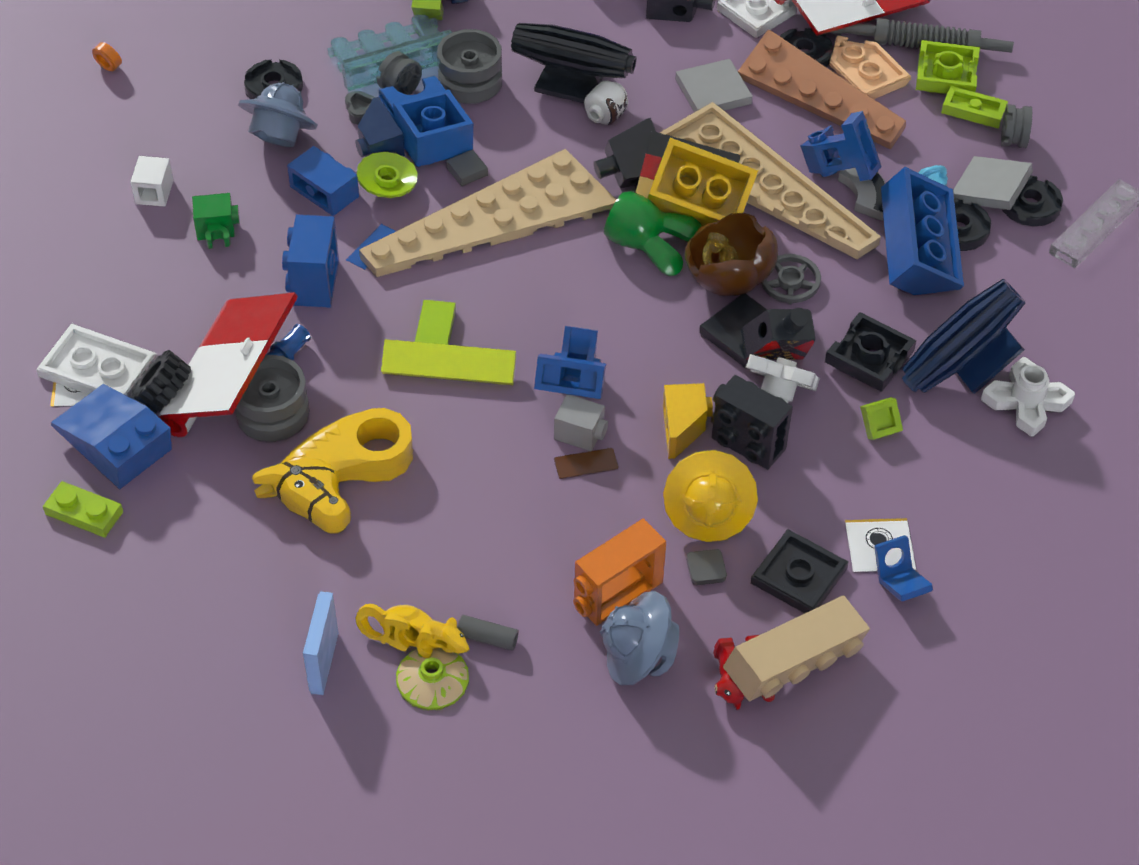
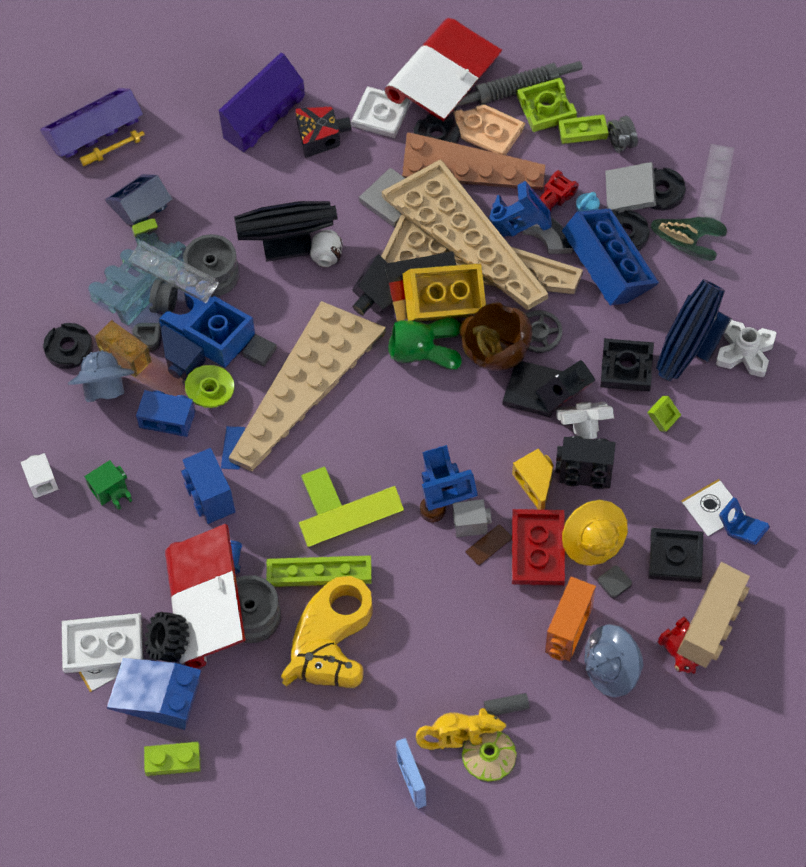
camera: 25 degrees left, 10 degrees up
(324, 104) = (125, 347): none -> clear yellow brick
(364, 393) = (317, 570): none -> lime plate
(421, 48) = (173, 271): none -> clear plate
(545, 401) = (433, 515): none -> reddish brown tile
(633, 486) = (537, 547): none -> red plate
(764, 128) = (449, 215): none -> tan wing
(903, 152) = (558, 190): none -> red connector
(1031, 253) = (686, 232): none -> clear green animal

